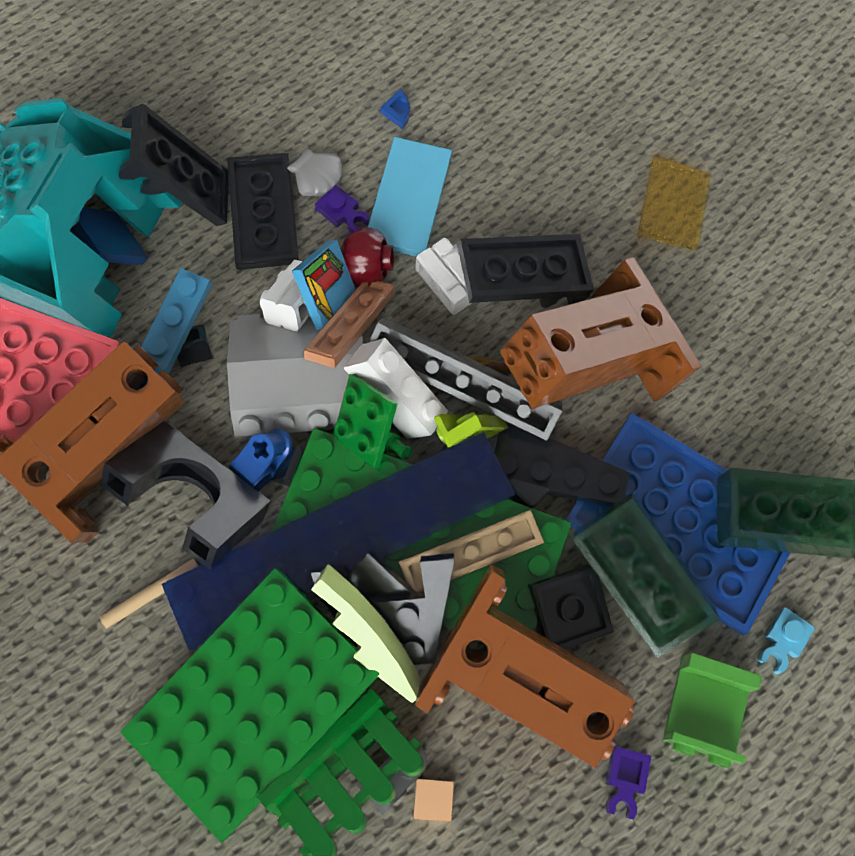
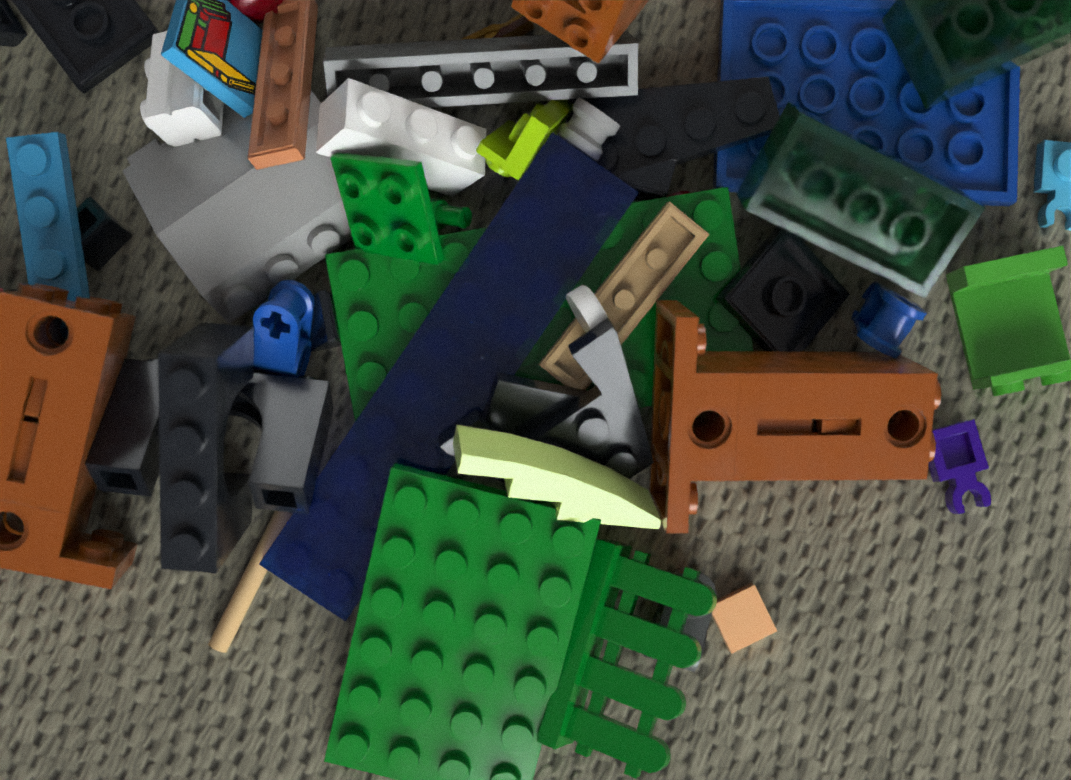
camera: 25 degrees left, 15 degrees up
(150, 528) = (199, 502): none -> black arch
(445, 540) = (586, 307): none -> white tile
(506, 443) = (587, 129): none -> light grey wheel
(626, 658) = (886, 319): none -> blue piece

